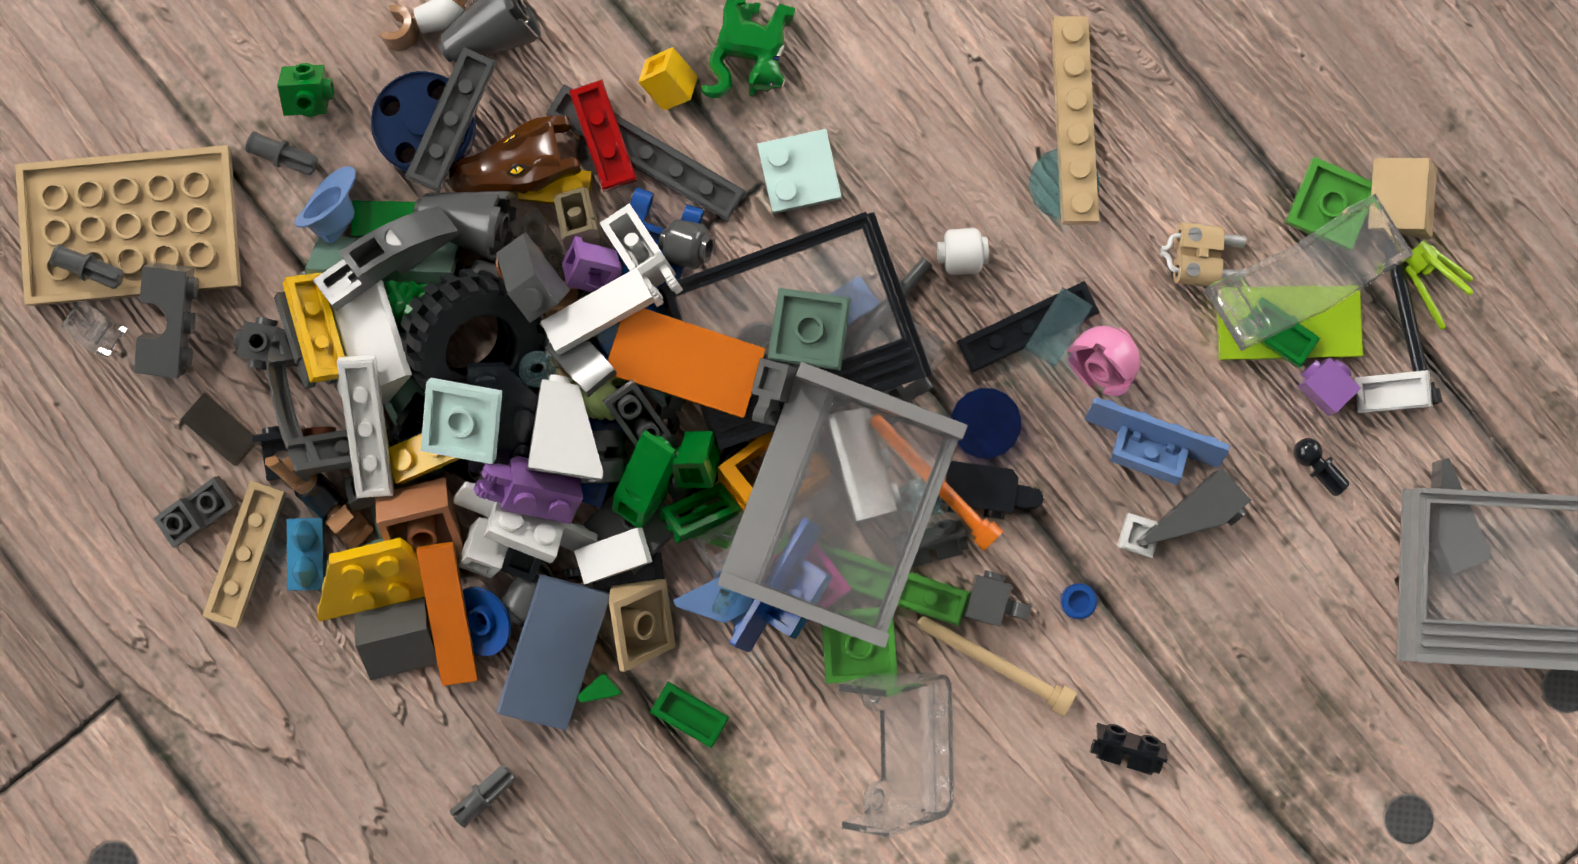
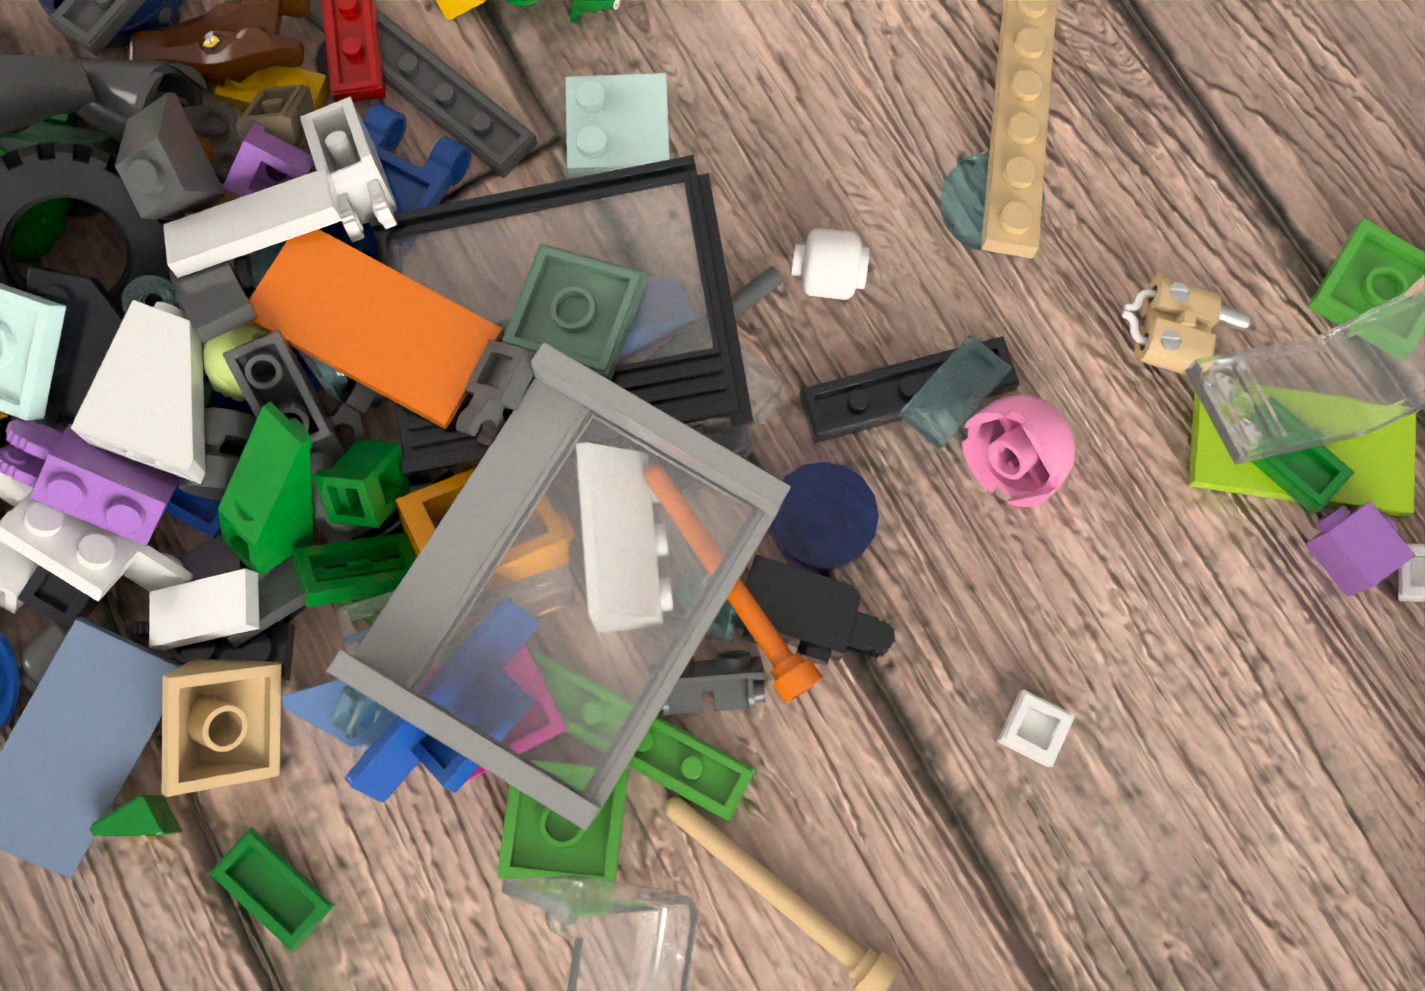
camera: 10 degrees right, 10 degrees down
(686, 244) = (426, 175): dark grey head -> none
(990, 600) = (785, 788): dark grey brick -> none
(1078, 601) = (925, 816): blue tile -> none
(1153, 444) = (1079, 588): medium blue bracket -> none
(1209, 505) = (1149, 701): dark grey slope -> none
(1309, 453) = (1320, 646): black axle -> none

